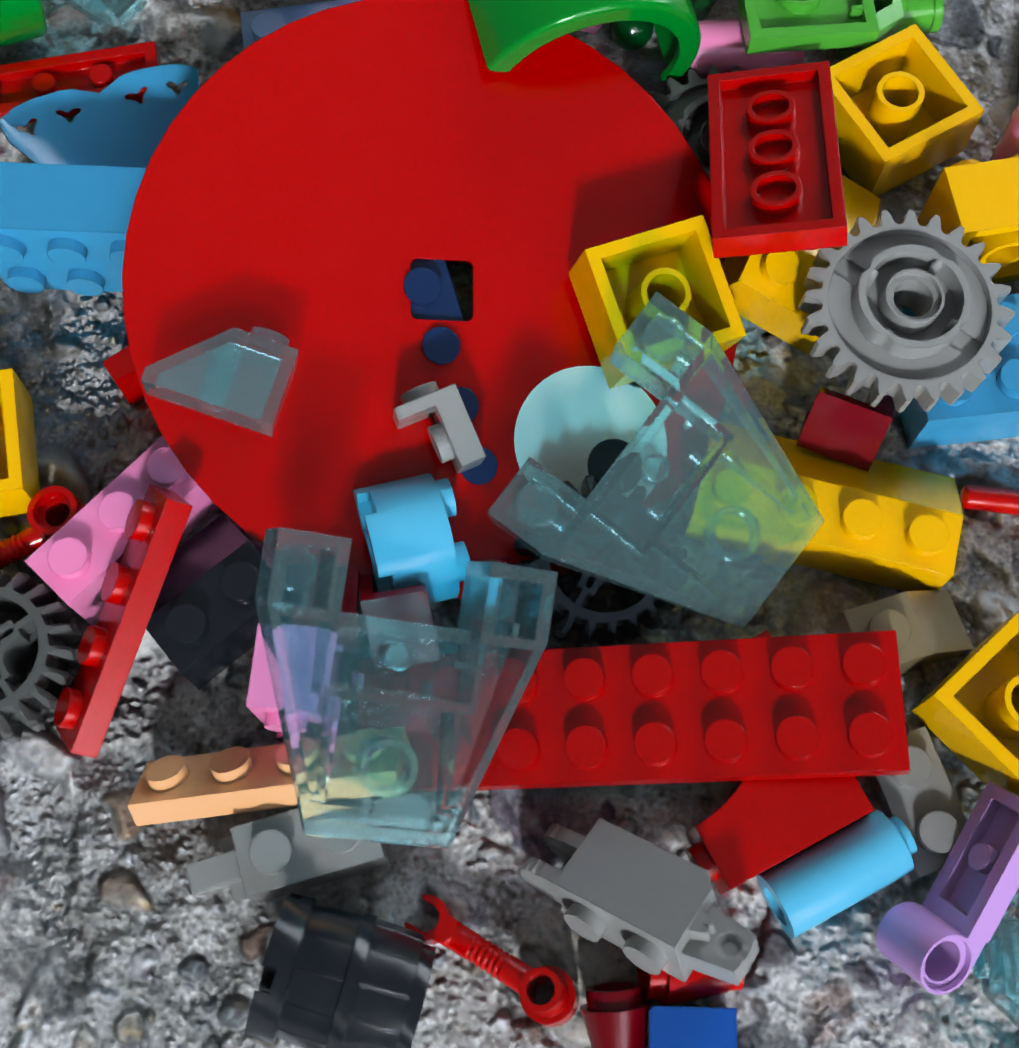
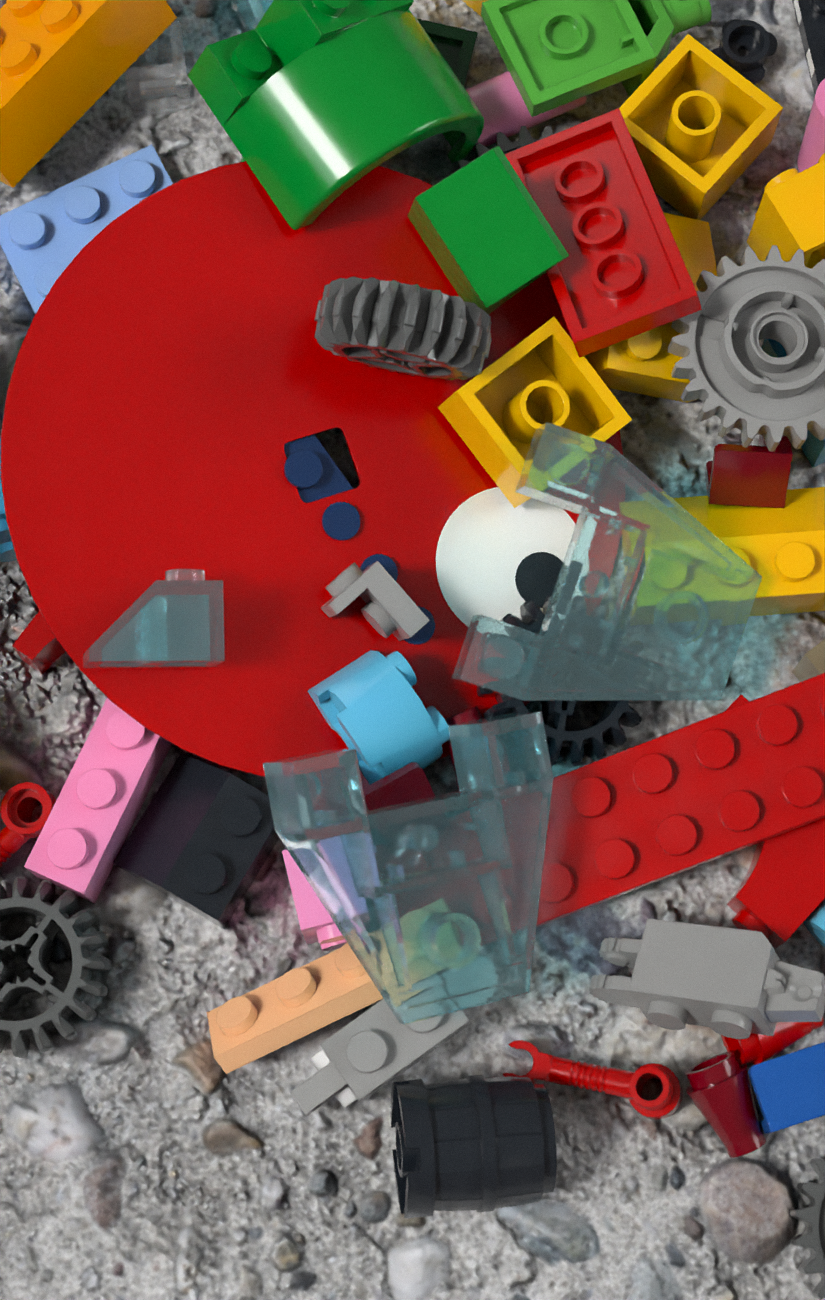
camera: 20 degrees left, 5 degrees up
(129, 598) = (141, 889): red plate -> none
(554, 175) = (403, 328): none -> dark grey gear
(664, 121) = (486, 231): none -> green slope
(969, 61) = (748, 36): none -> black plate

